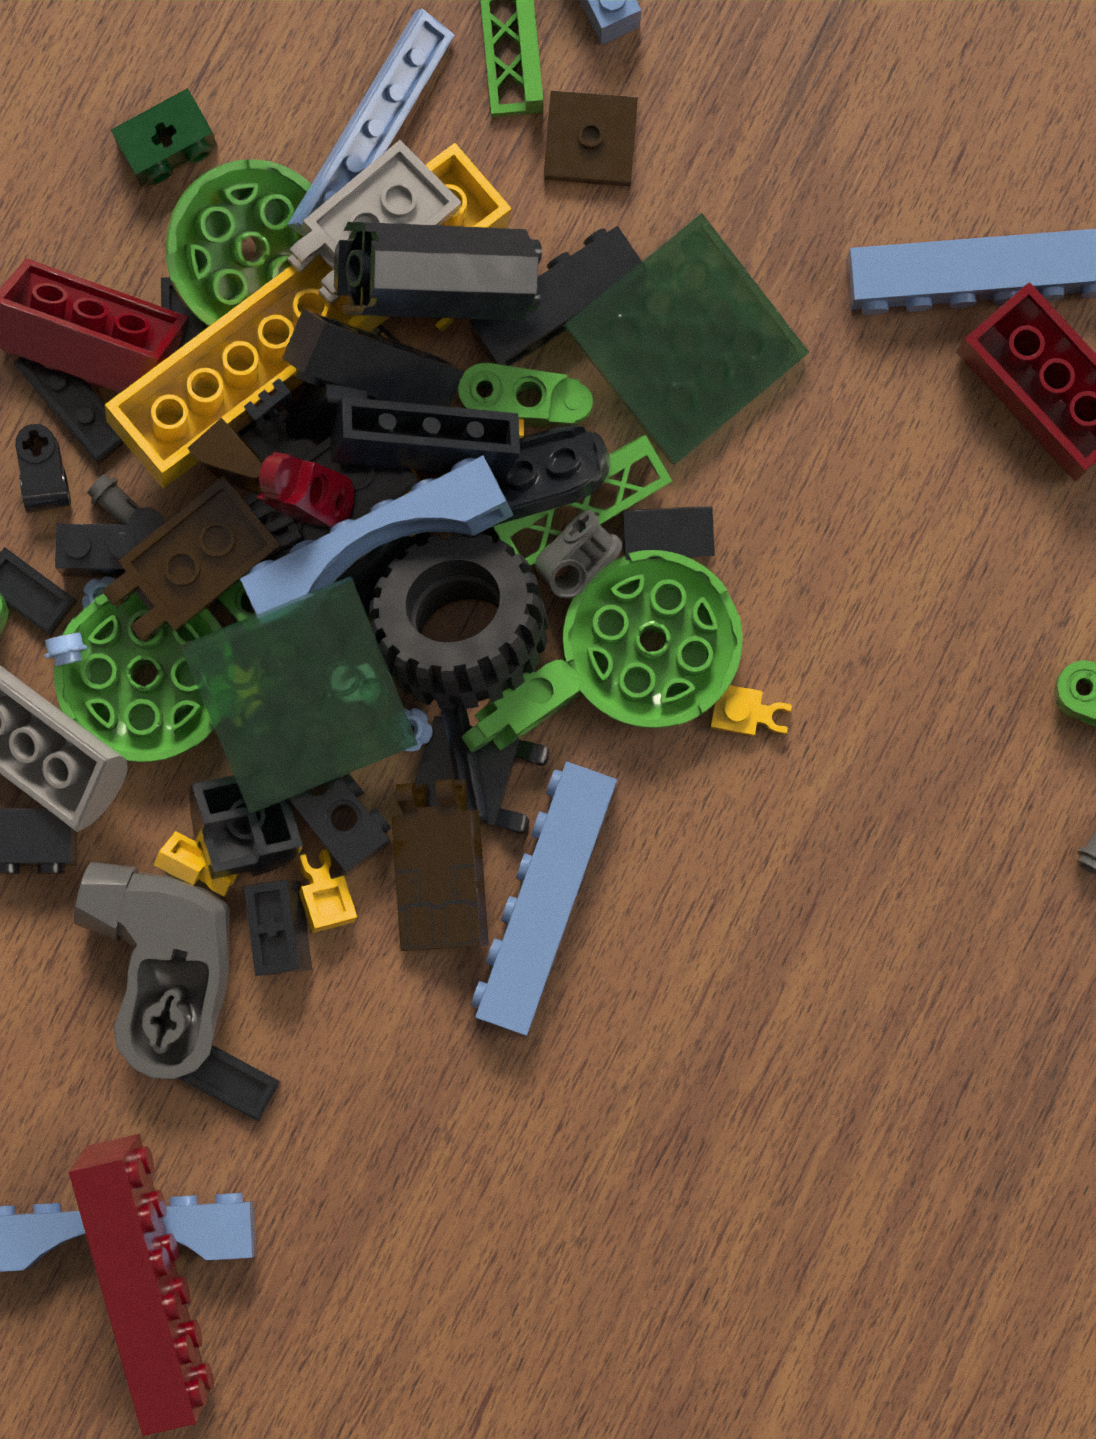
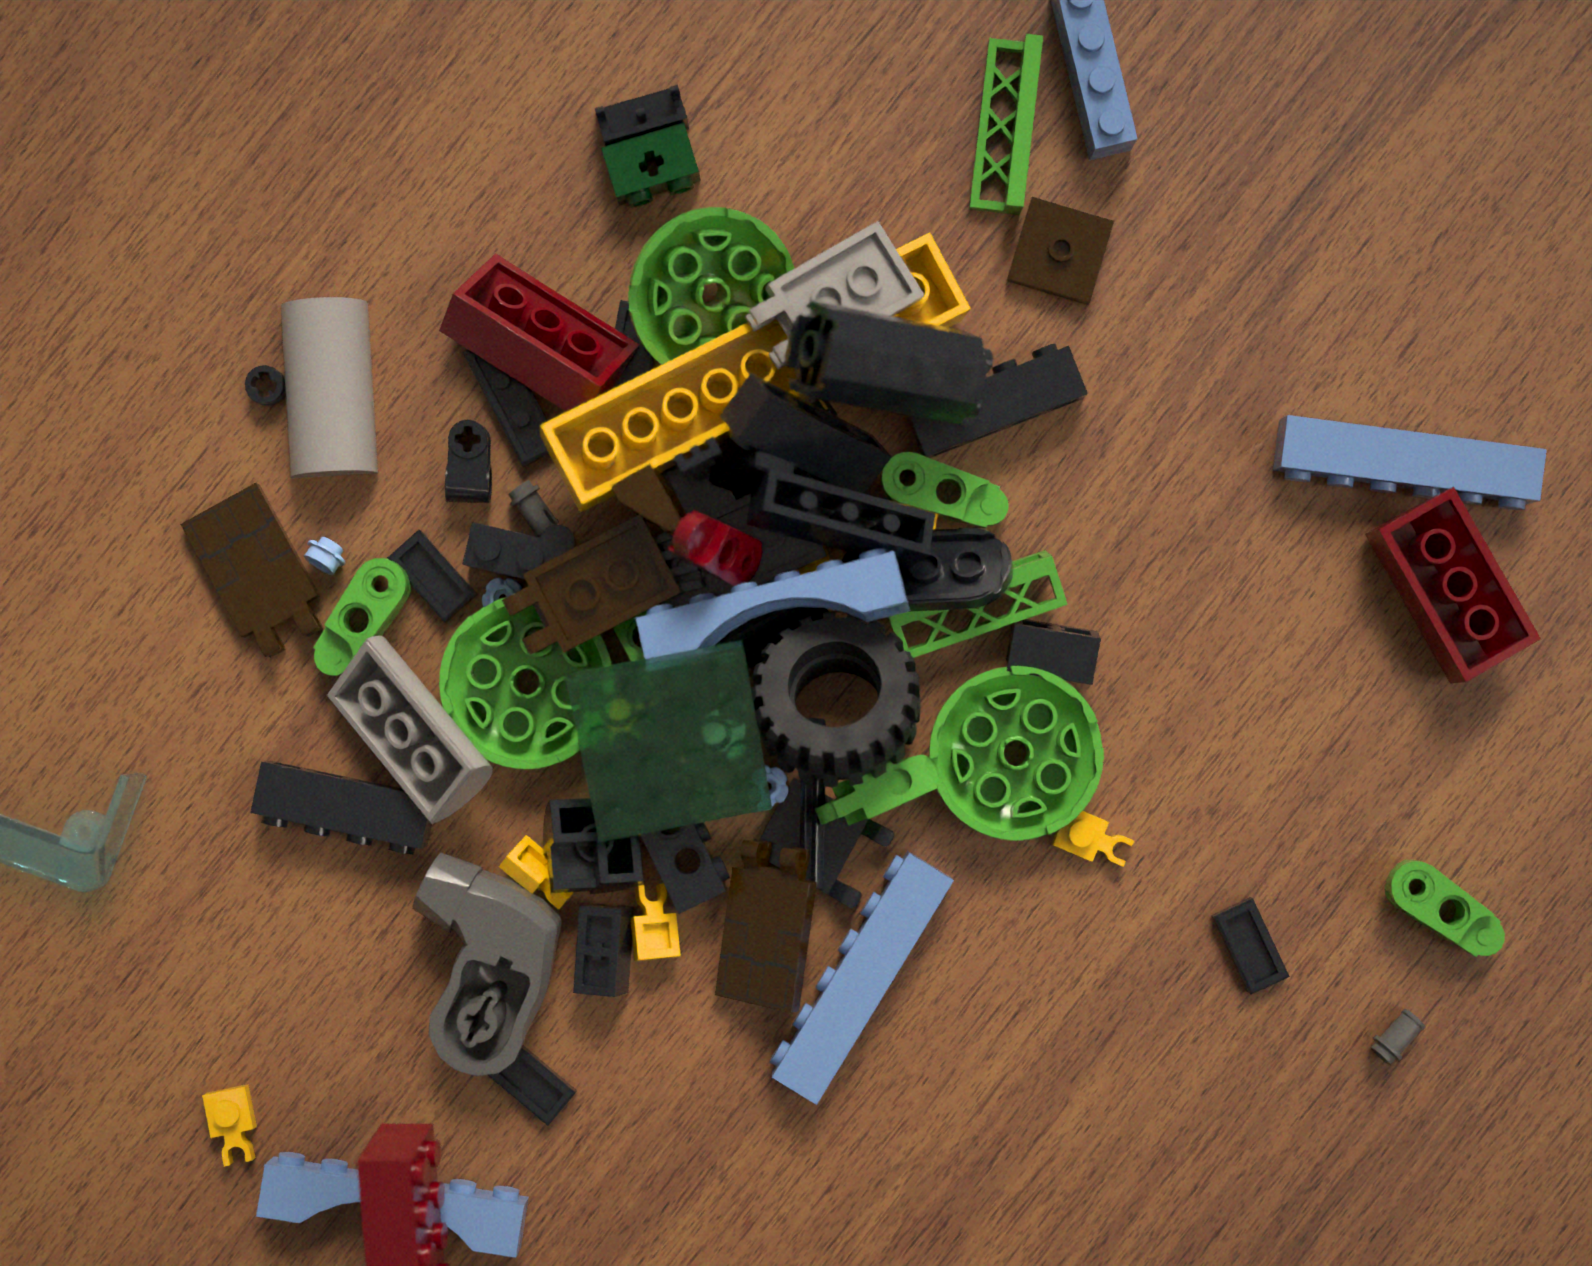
camera: 15 degrees right, 5 degrees up
(65, 648) = (456, 645): light blue plate -> none
(144, 91) = (641, 115): none -> black hinge
(380, 110) = (860, 187): medium blue tile -> none
(579, 553) = (961, 659): dark grey piece -> none
(686, 338) = (1111, 469): clear green plate -> none
(933, 786) = (1250, 945): none -> black tile

